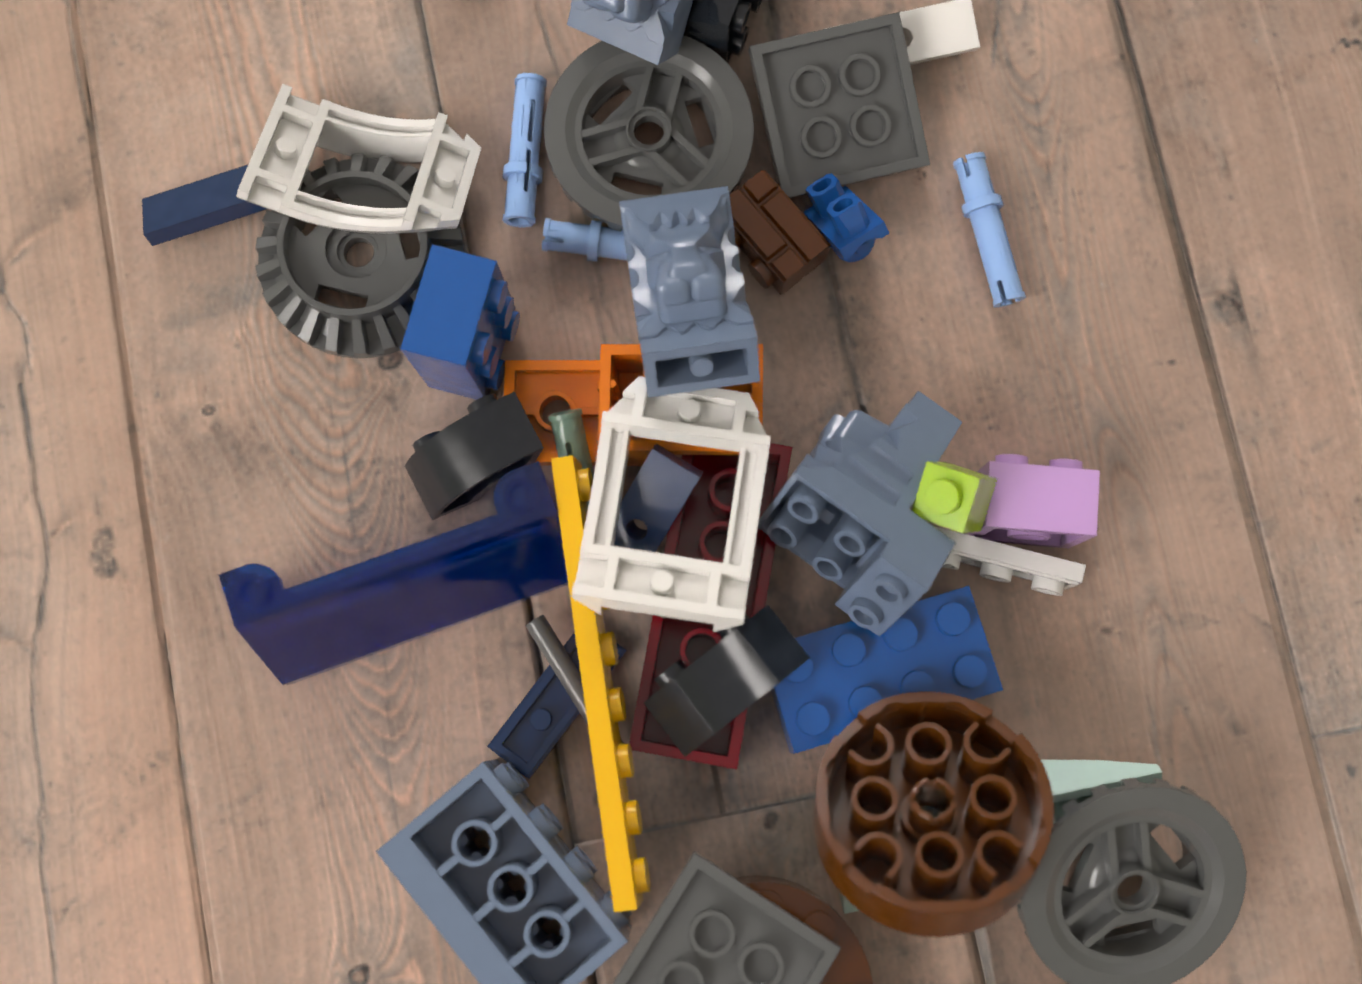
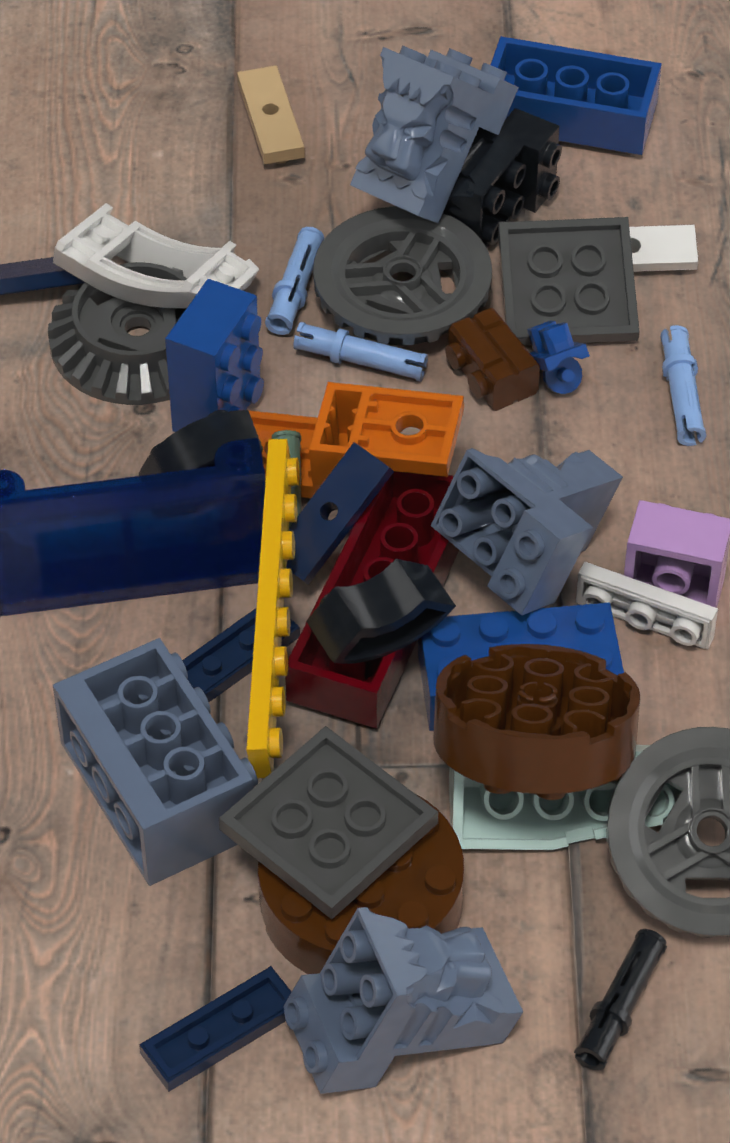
camera: 10 degrees right, 30 degrees down
(559, 661) = (238, 617): dark grey bar -> none
(666, 582) = (348, 524): white wedge -> none
(689, 292) = (407, 339): sand blue brick -> none
(954, 496) = (605, 505): lime brick -> none

